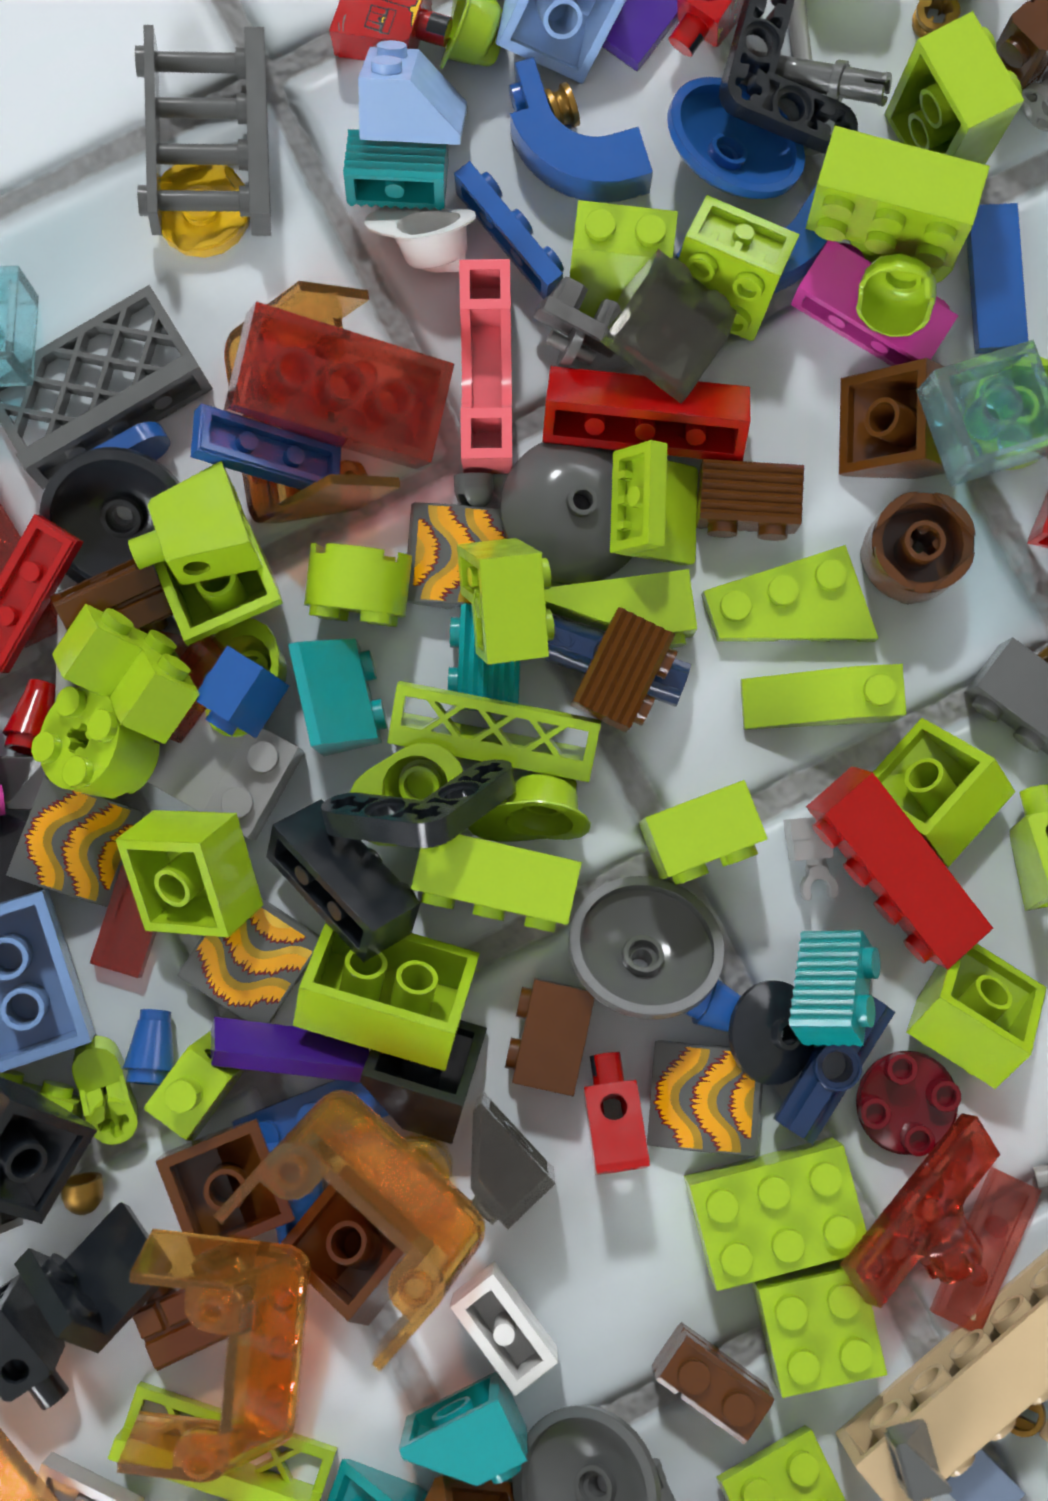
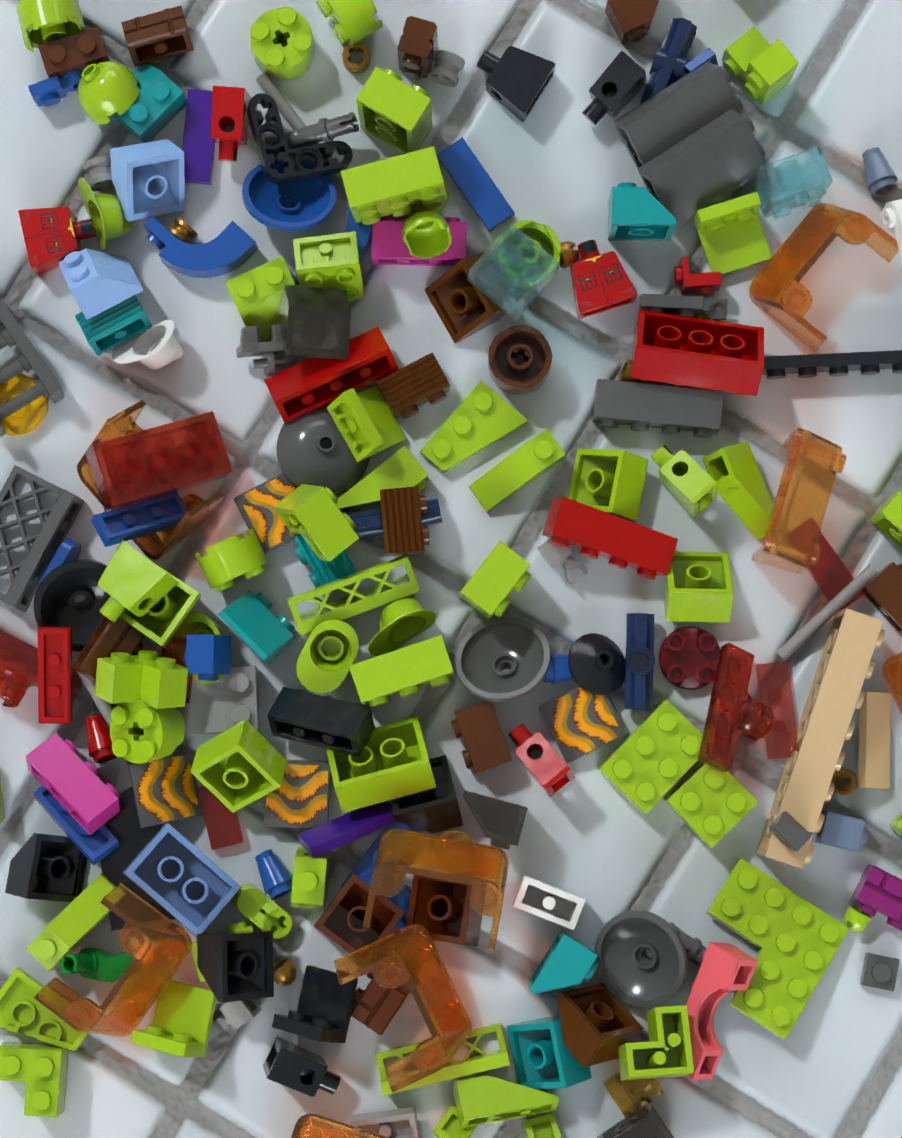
camera: 30 degrees left, 0 degrees up
(424, 821) = (344, 665): black beam -> none
(474, 488) = (262, 471): dark grey hinge -> none
(486, 366) = (229, 401): coral arch -> none
(508, 229) = (196, 317): blue plate -> none
(712, 1383) = (674, 864): reddish brown brick -> none
(833, 988) = (612, 621): teal brick -> none

